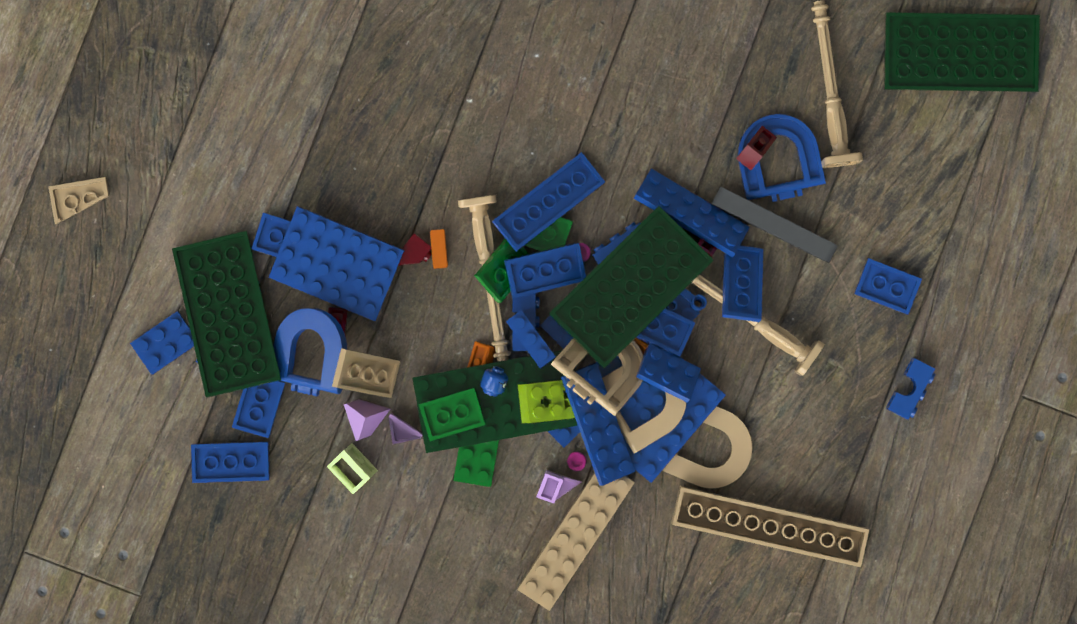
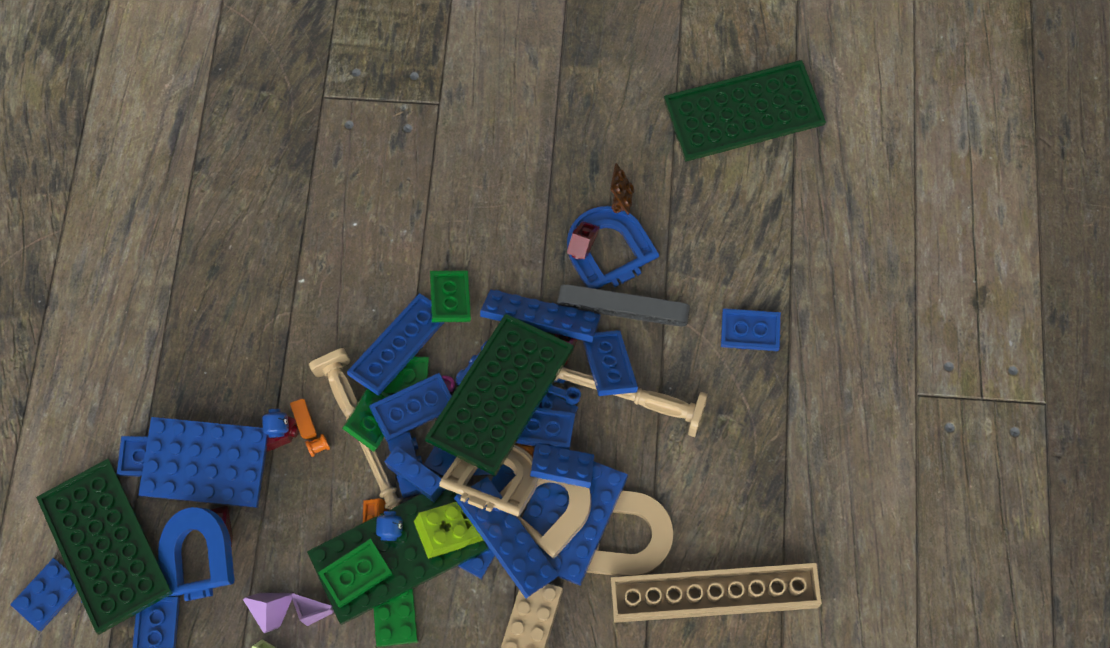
camera: 15 degrees left, 20 degrees down
(366, 373) = (256, 557): tan plate -> none
(412, 249) = (275, 423): none -> blue head
(445, 276) = (317, 445): none -> orange bush
(555, 485) = (483, 619): lavender slope -> none
(576, 461) = (498, 588): dark pink tile -> none
(610, 166) = (450, 296): none -> green plate
(810, 108) = (622, 191): none -> reddish brown hinge
(834, 111) = (664, 225): tan piece -> none
(921, 375) = (806, 434): blue arch -> none

